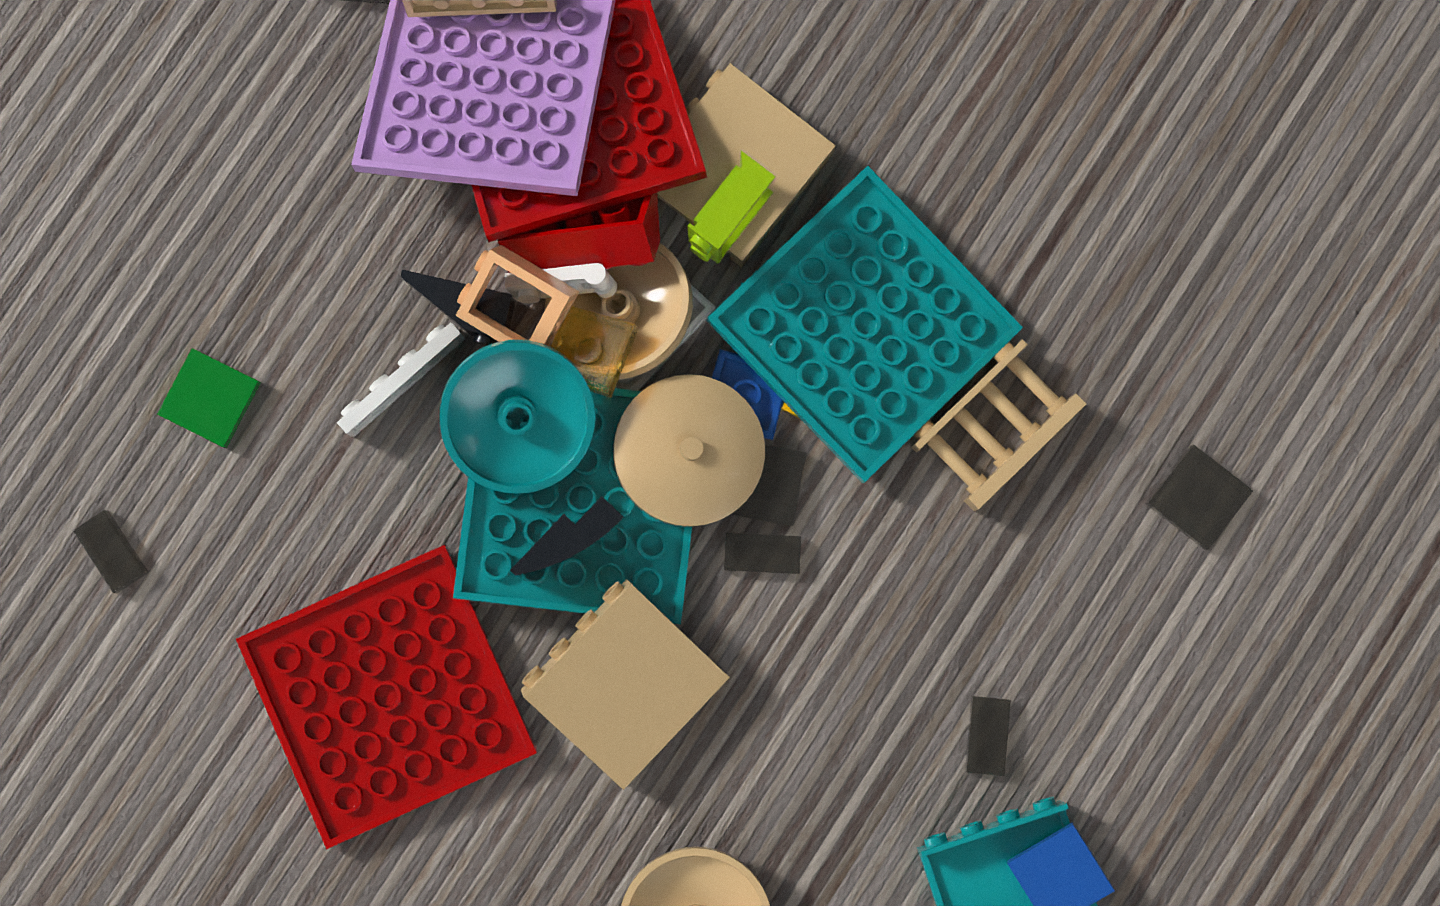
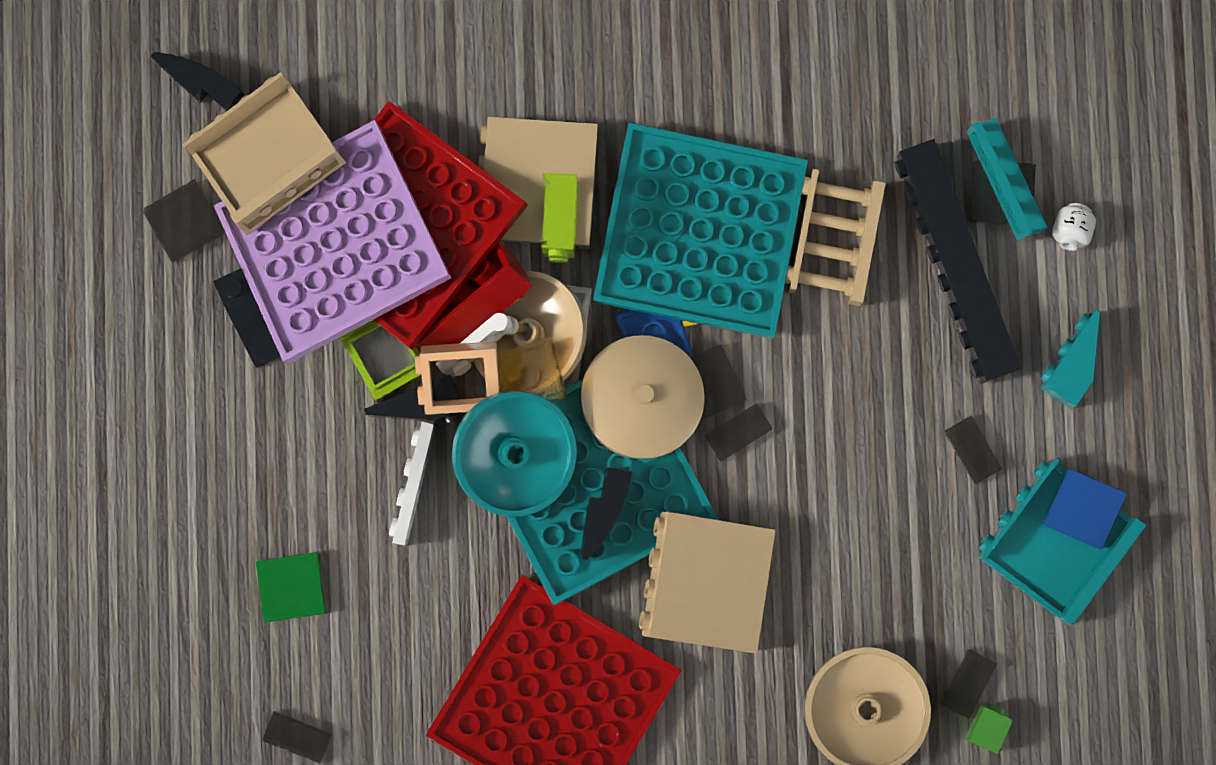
camera: 30 degrees left, 0 degrees up
(350, 94) = (247, 317): none -> black slope
(453, 232) = (381, 359): none -> window
(1104, 534) = (957, 261): none -> black brick
(1151, 725) = (1075, 368): none -> teal slope
(1213, 485) = (1006, 179): none -> teal fence
(1249, 581) = (1074, 226): none -> white head

